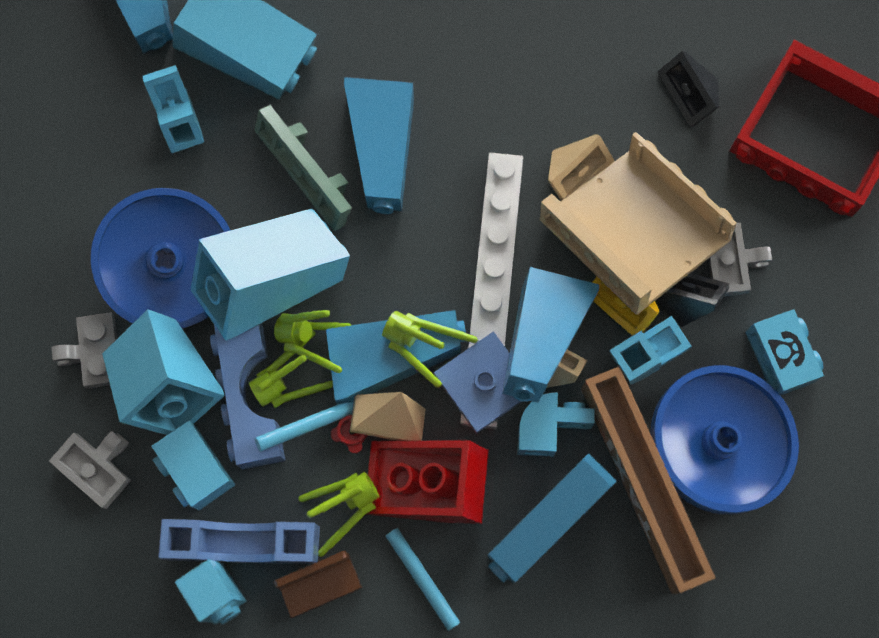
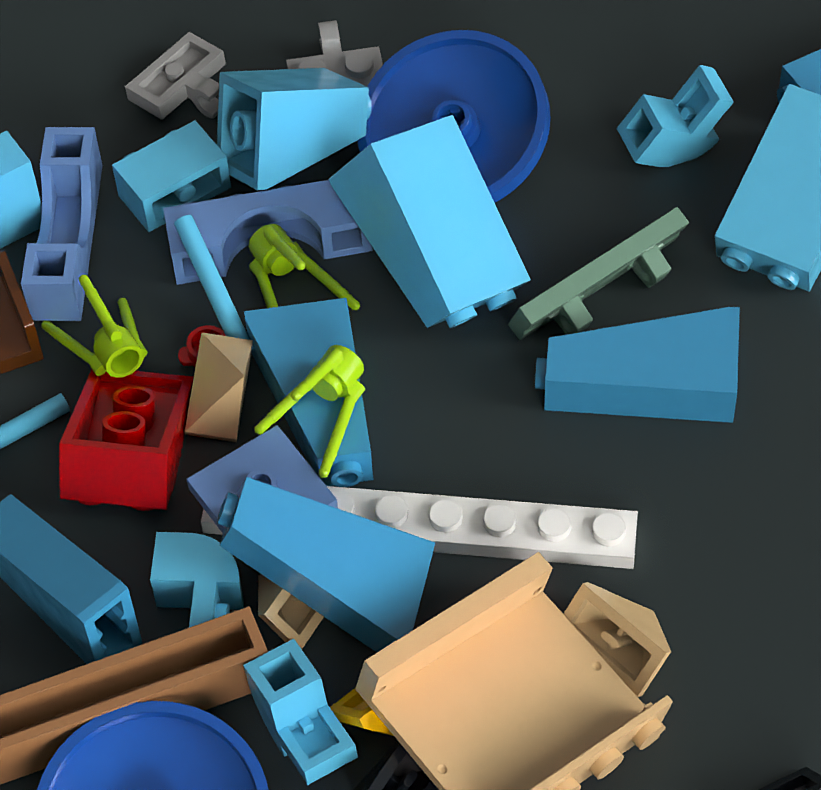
camera: 90 degrees right, 20 degrees down
(296, 330) = (351, 278): lime plant -> none

